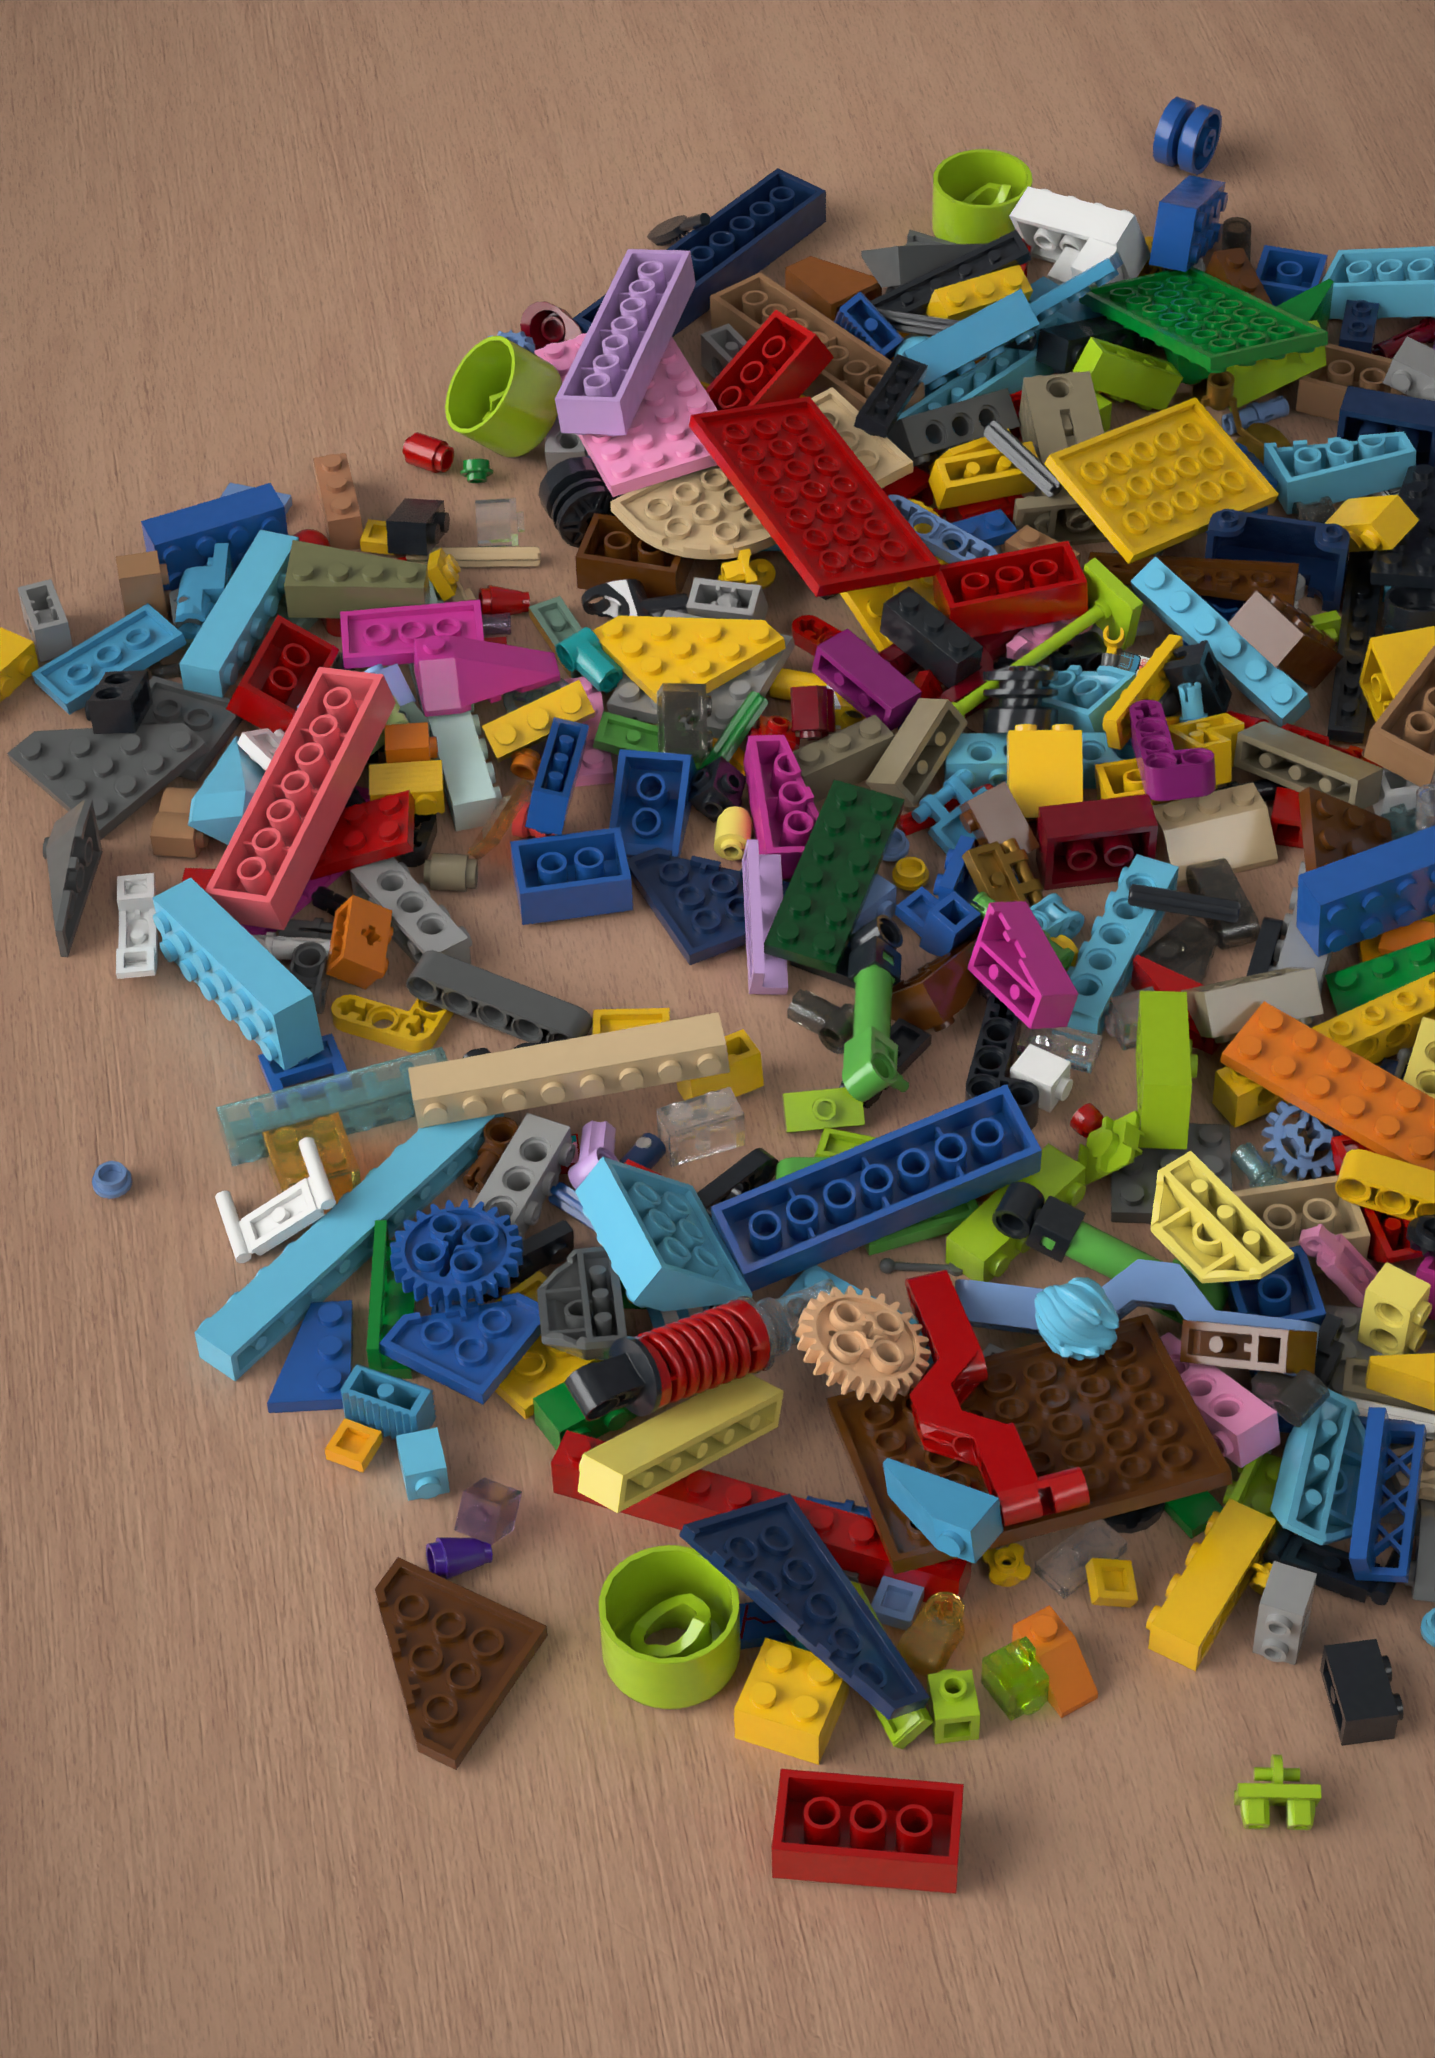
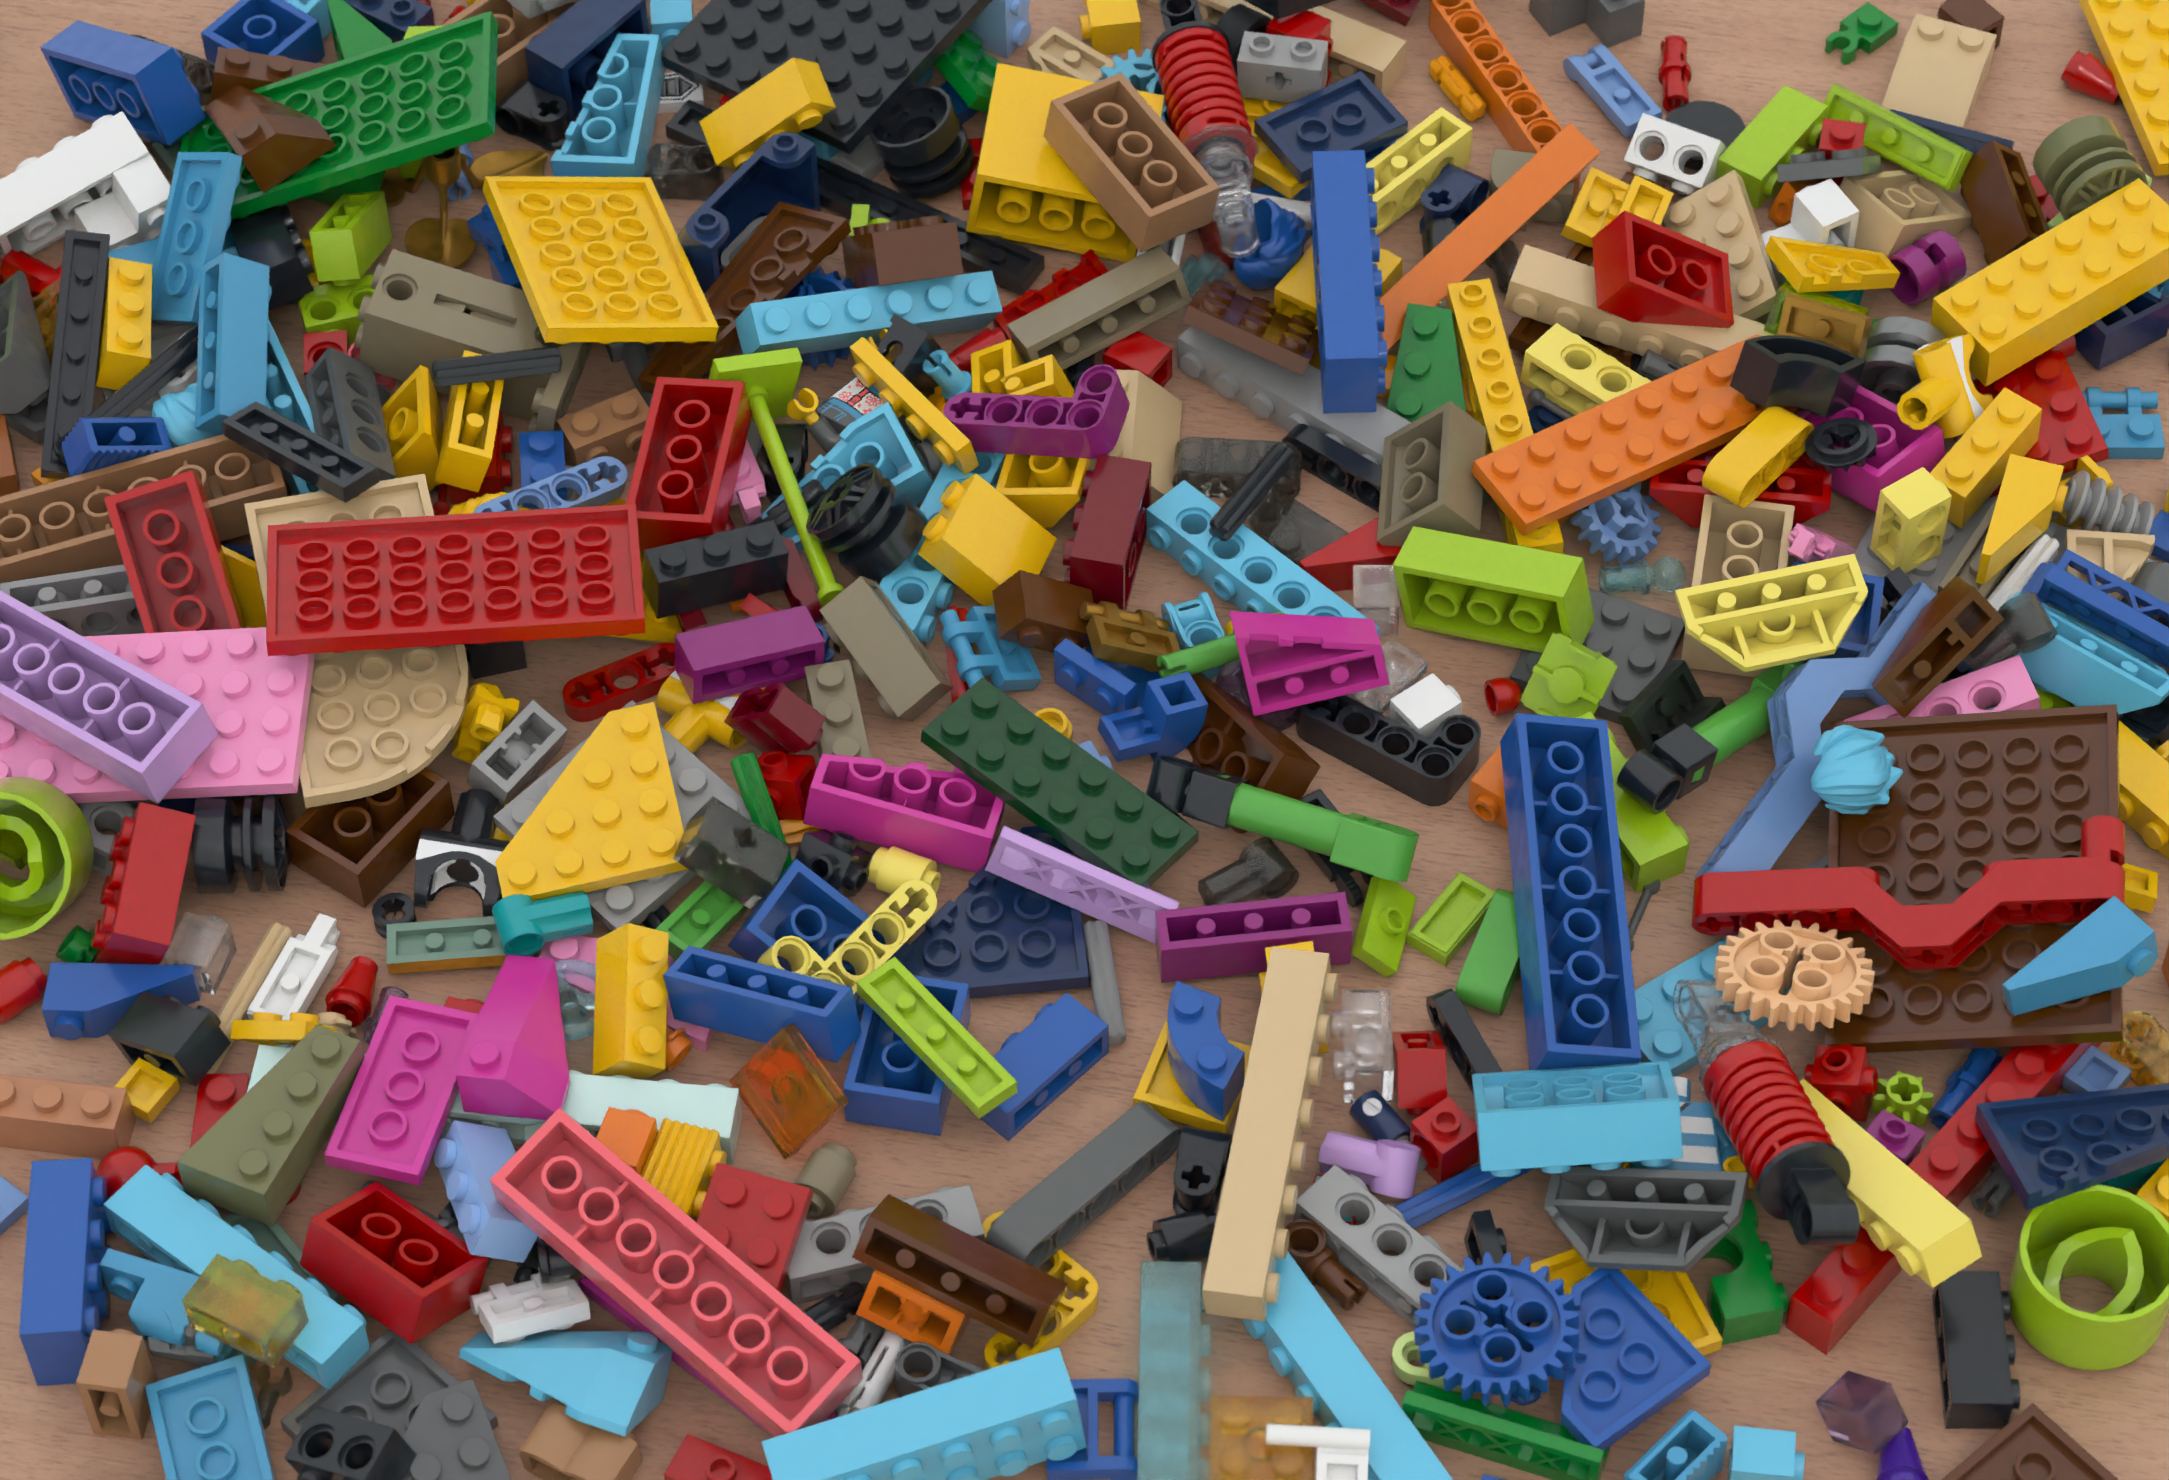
camera: 70 degrees left, 5 degrees up
(195, 608) = (246, 1309): none -> clear yellow brick
(380, 943) = (959, 1270): none -> reddish brown brick
(437, 480) = (93, 997): none -> blue slope
(504, 572) = (299, 971): none -> white hinge
(511, 463) = (143, 886): none -> red brick
(566, 868) = (937, 1037): none -> lime plate
(571, 597) = (392, 903): none -> black bush
(572, 1576) = (1975, 1351): none -> black brick
(598, 952) = (1047, 1060): none -> blue brick
(640, 1006) = (1199, 1054): none -> blue brick
(644, 815) = (860, 946): none -> light yellow beam
(693, 1158) = (1419, 1070): none -> red slope
(695, 971) = (1104, 979): none -> light grey axle
(750, 1006) = (1234, 935): none -> magenta brick
(750, 1461) = (1897, 1136): none -> magenta bracket
(801, 1423) = (1844, 1078): none -> red brick
(806, 1473) = (1903, 1098): none -> lime gear
(1122, 1217) = (1666, 704): none -> pearl dark grey bracket
(1160, 287) = (267, 135): none -> reddish brown wedge
(1321, 426) = (533, 115): none -> black piece

